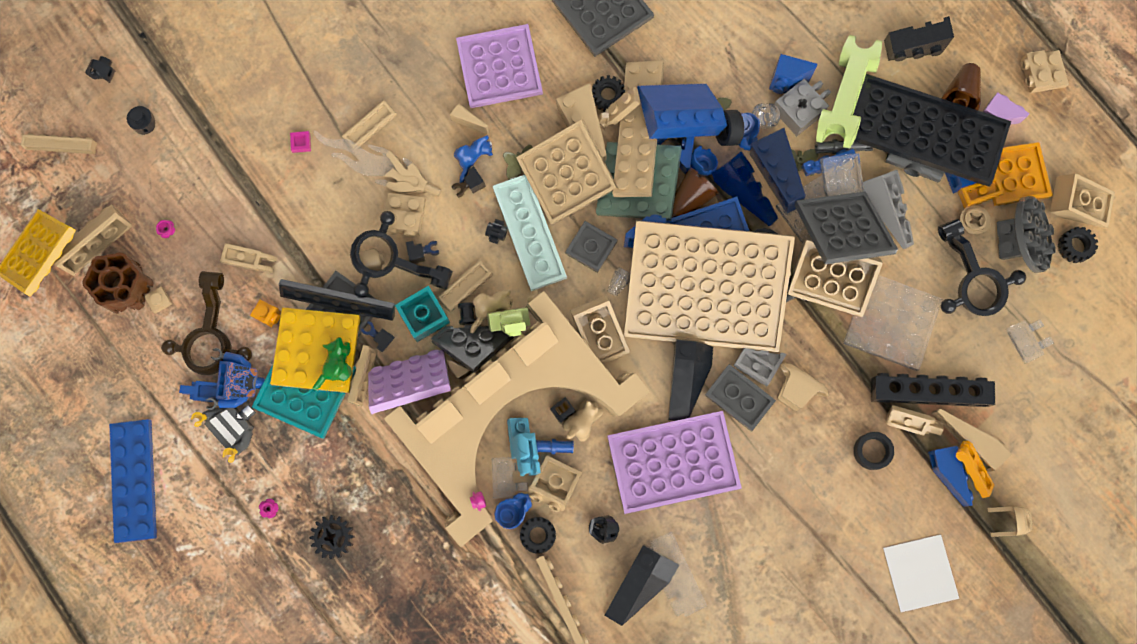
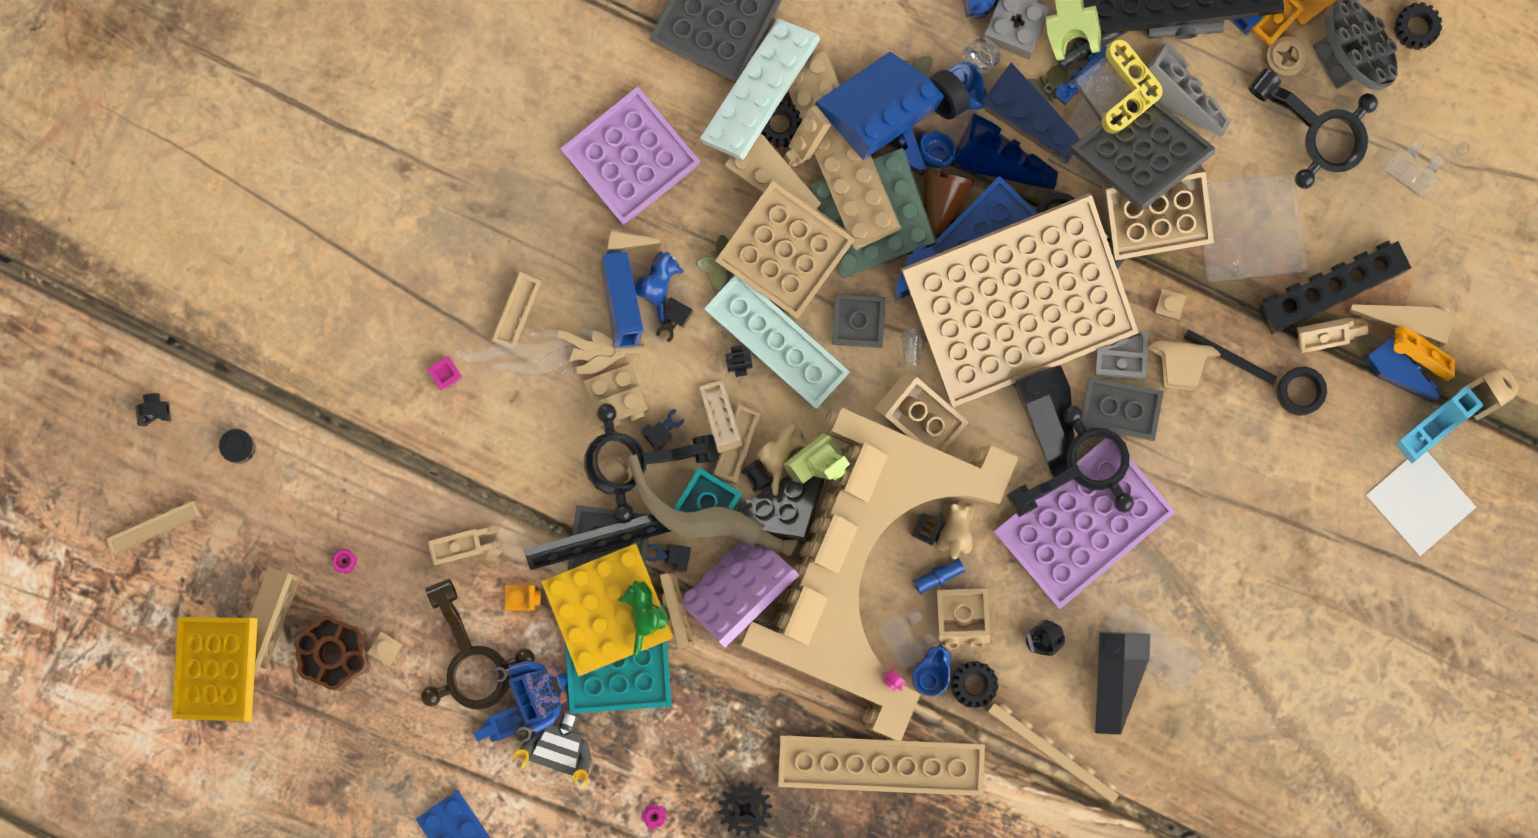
camera: 25 degrees left, 5 degrees up
(412, 324) = (706, 522): none -> dark tan animal
(439, 151) = (621, 299): none -> blue slope
(442, 557) = (881, 765): none -> tan plate
(463, 261) = (720, 416): none -> tan plate
(523, 446) = (906, 594): medium azure plate -> none
(606, 63) = (760, 89): none -> light aqua plate
(638, 423) = (1024, 499): none -> black piece
(810, 345) = (1170, 305): none -> tan plate
(836, 404) = (1232, 358): none -> black bar
(860, 189) = (1138, 92): none -> light yellow beam
(963, 524) = (1439, 424): none -> medium azure arch

